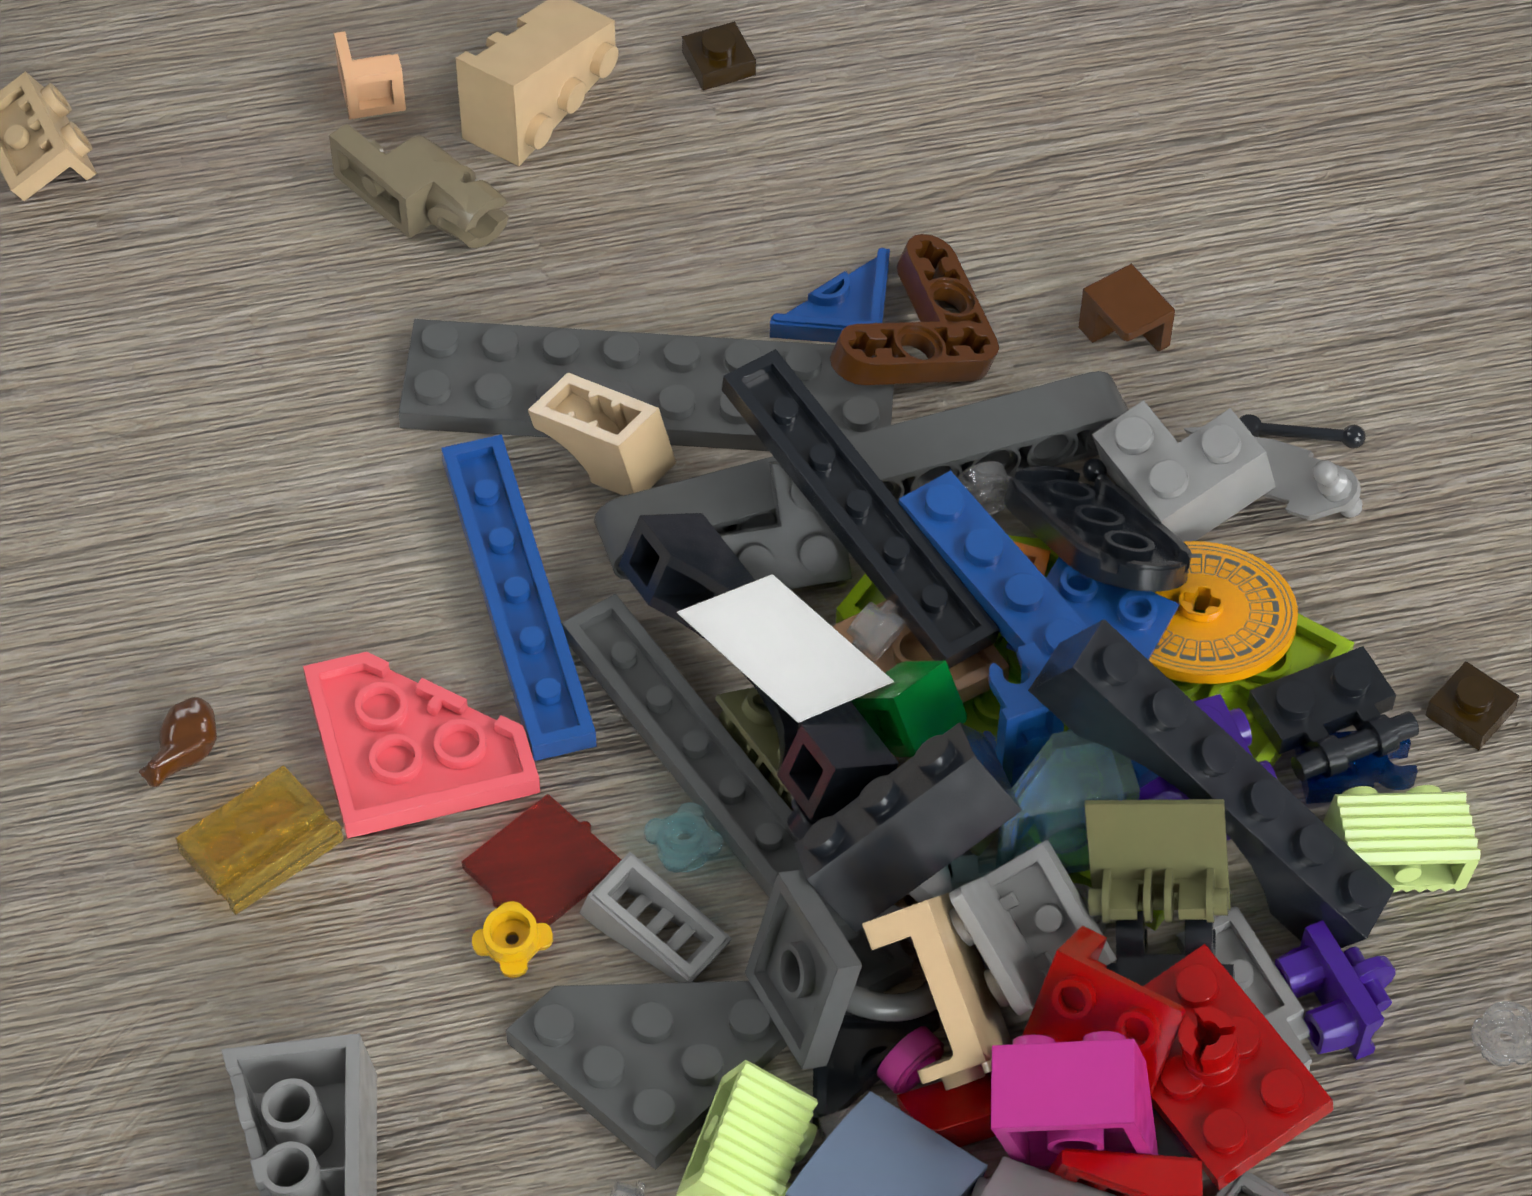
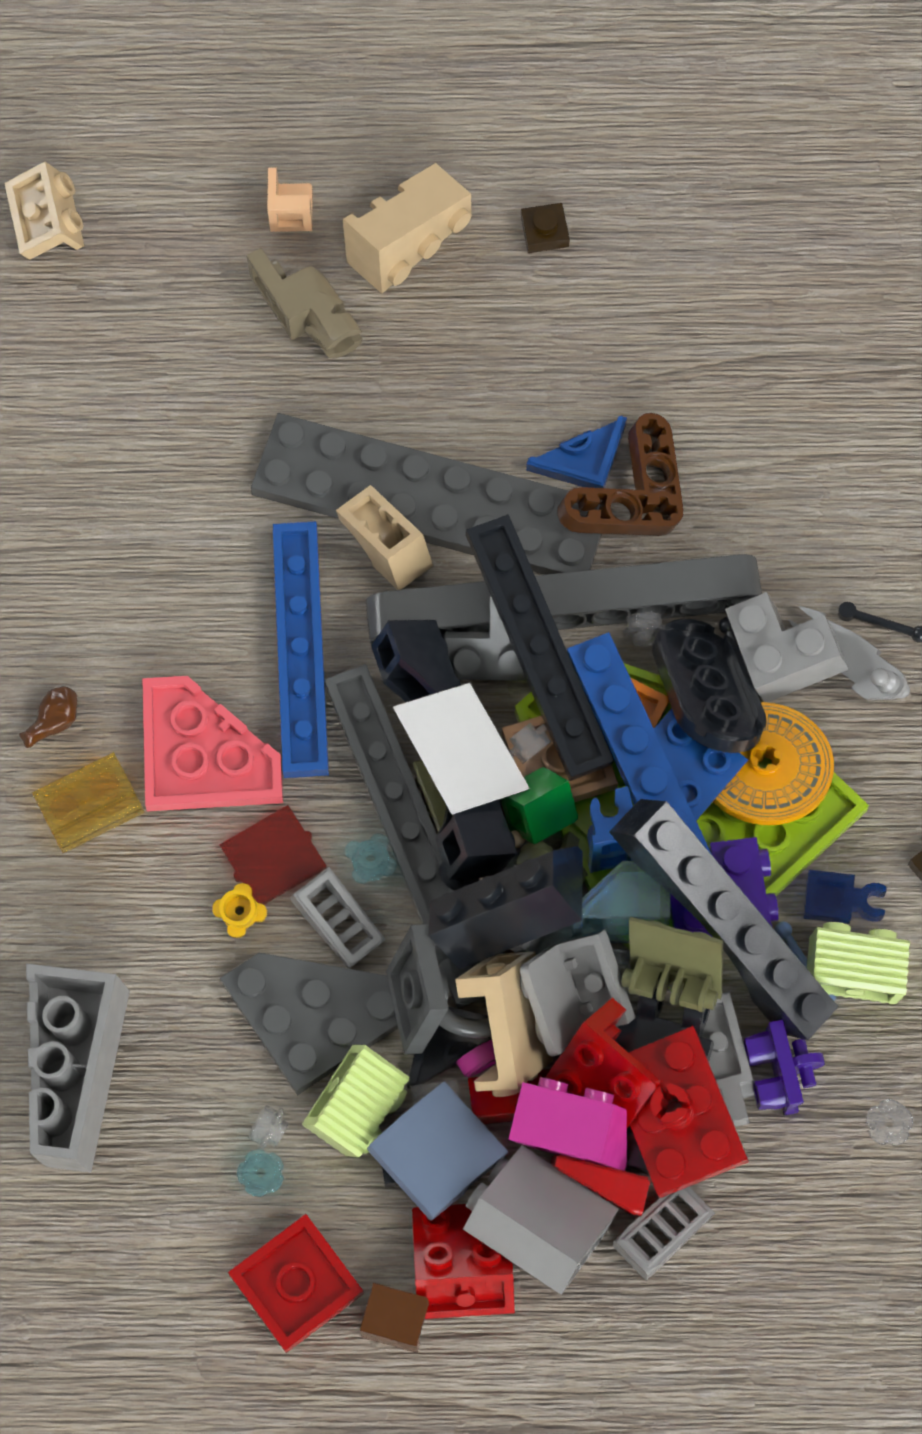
camera: 15 degrees right, 15 degrees up
(1128, 307) = (781, 504): reddish brown panel -> none
(1324, 700) = (833, 849): black plate -> none

